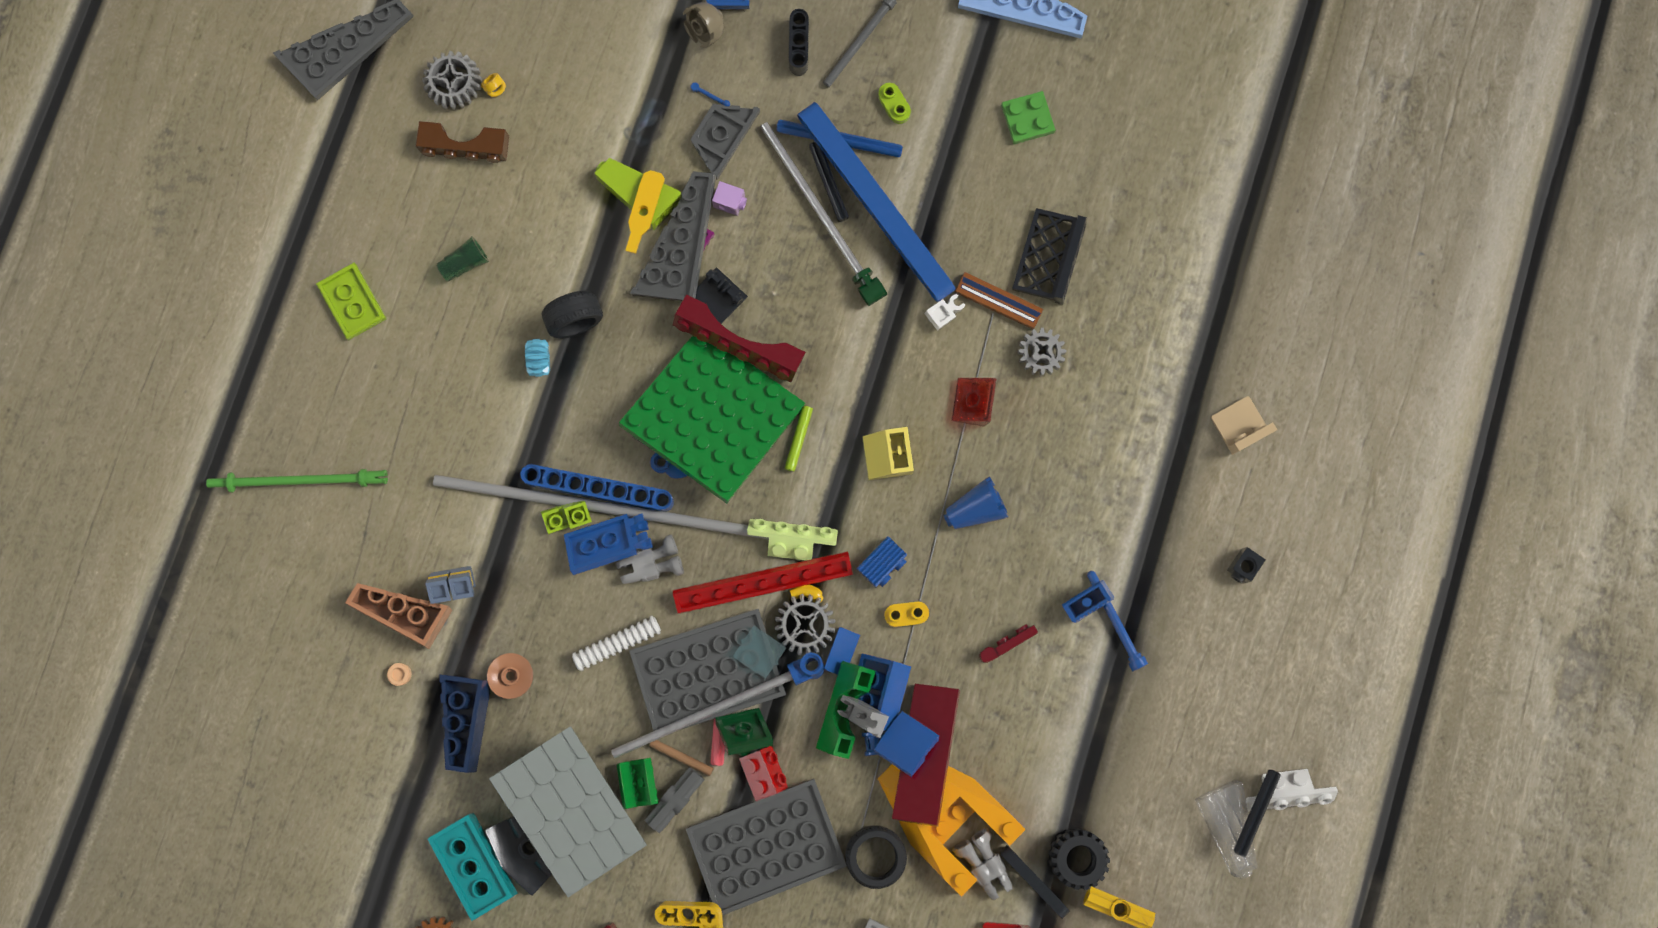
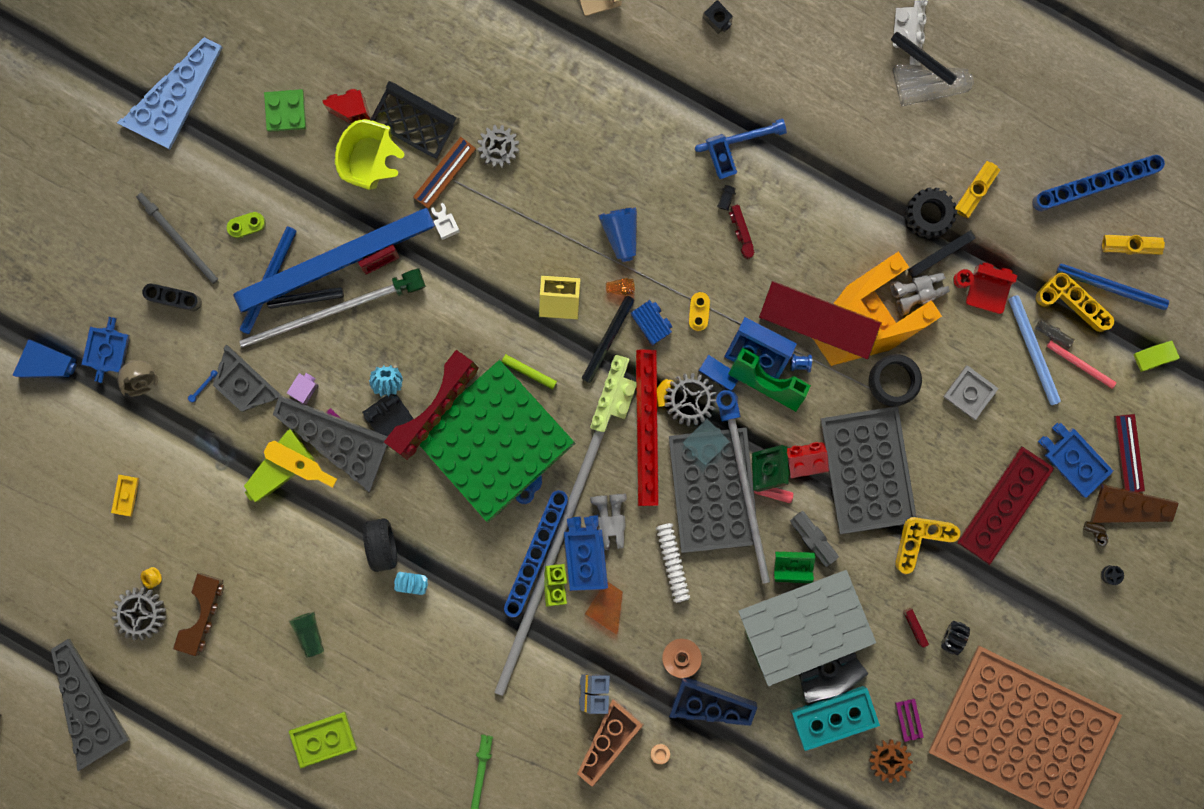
camera: 75 degrees left, 5 degrees up
(552, 580) = (607, 607): none -> clear orange wing
(576, 39) = (125, 495): none -> yellow plate
(681, 757) = (780, 525): medium nougat bar -> none
(755, 284) = (386, 380): none -> medium azure gear
(853, 518) = (608, 339): none -> black axle
(864, 715) = (778, 364): light grey hinge -> none
(887, 249) = (379, 259): none -> dark red tile
(906, 743) = (808, 334): blue slope -> none
(915, 520) = (621, 287): none -> clear orange cone
(974, 401) = (528, 213): clear red slope -> none
(999, 207) = (363, 153): none -> neon yellow piece
(1012, 921) = (958, 276): none -> red bush
(1043, 618) = (726, 197): none -> black pin
(1048, 182) = (348, 106): none -> red slope

